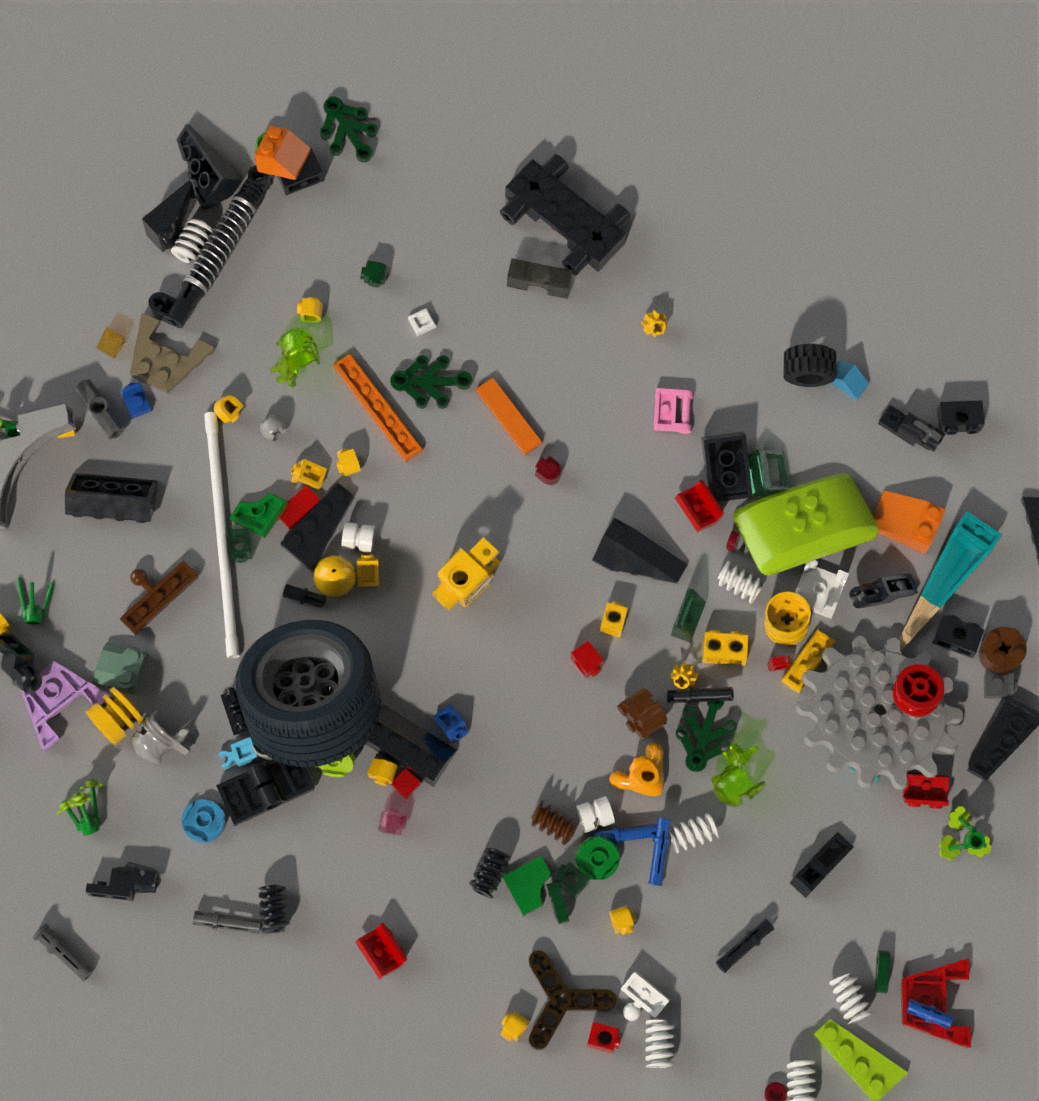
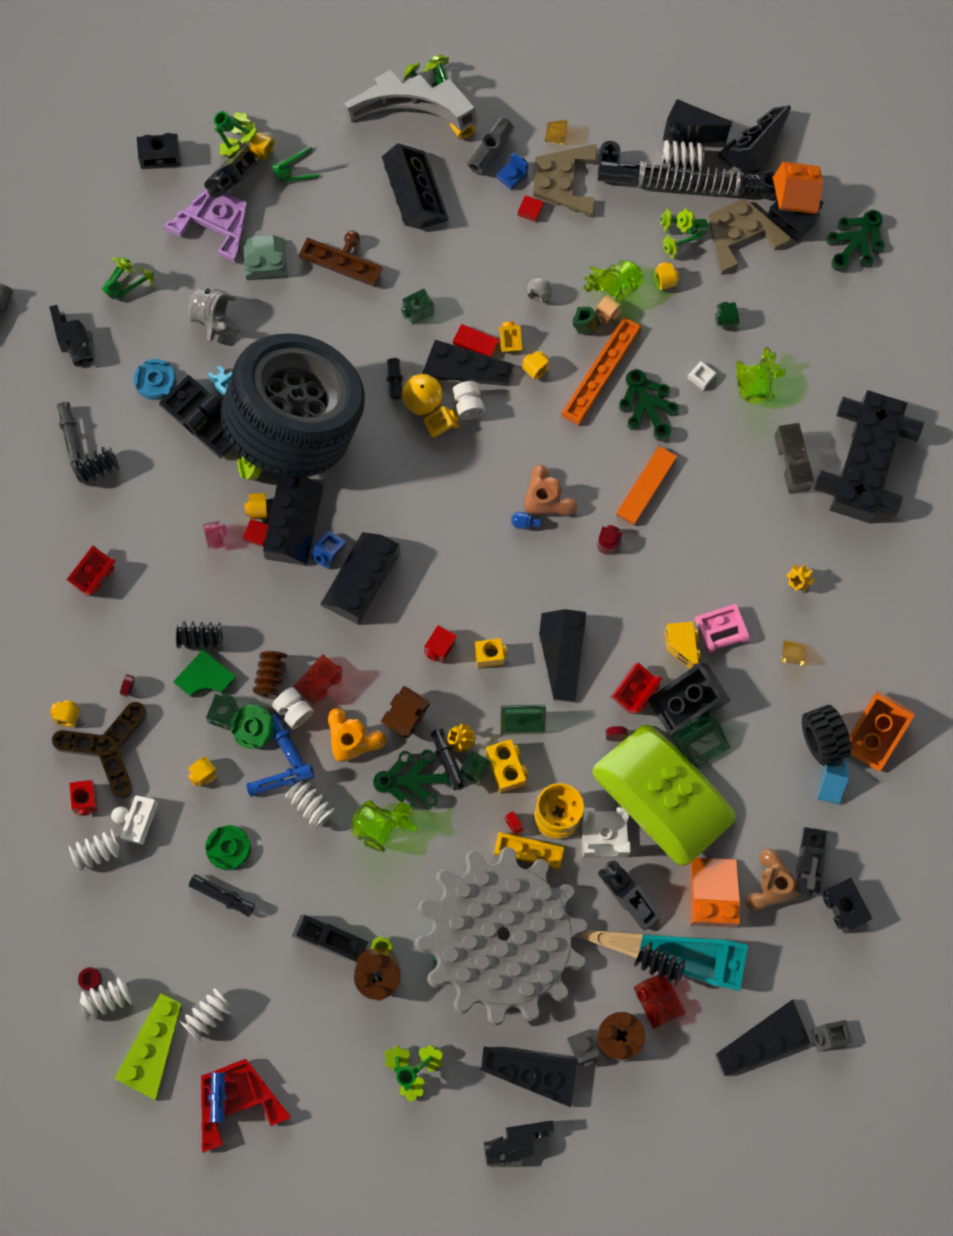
camera: 65 degrees right, 0 degrees up
(114, 716) = (214, 266): yellow wheel -> none
(181, 401) = (530, 208): none -> red tile
(228, 408) = (539, 246): yellow plate -> none
(231, 639) = (514, 243): white piece -> none
(259, 515) = (453, 312): green tile -> none
(269, 266) = (686, 223): none -> lime plant
(284, 225) = (737, 225): none -> dark tan wing
(321, 375) = (608, 310): none -> light nougat plate
(323, 399) = (585, 320): none -> dark green plate
(454, 277) = (756, 380): none -> clear neon green piece
(469, 568) = (469, 503): yellow piece -> none
(483, 508) = (545, 493): none -> nougat head
(490, 704) = (361, 576): none -> black slope
(498, 536) = (524, 520): none -> blue cylinder
(510, 958) = (127, 685): none -> dark red tile
(557, 902) = (195, 706): dark green beam -> none
(576, 780) = (319, 679): none -> clear red bracket
(674, 449) = (681, 643): none -> yellow slope
(701, 924) = (228, 847): none -> green tile
(717, 674) = (475, 768): none -> clear green brick
(718, 360) = (793, 652): none -> clear yellow slope
(740, 582) = (576, 755): white piece -> none
(818, 318) = (879, 730): none -> orange slope
(847, 822) = (382, 942): none -> lime tile
(872, 833) = (380, 986): none -> reddish brown brick
(882, 971) = (245, 1037): dark green beam -> none
(918, 690) = (523, 967): red wheel -> none
(920, 464) = (777, 883): none -> medium nougat head
(926, 790) = (441, 1013): red bracket -> none
(945, 635) = (611, 999): black brick -> none
(955, 588) = (660, 963): none -> black piece
(982, 606) = (658, 1001): none -> clear red bracket

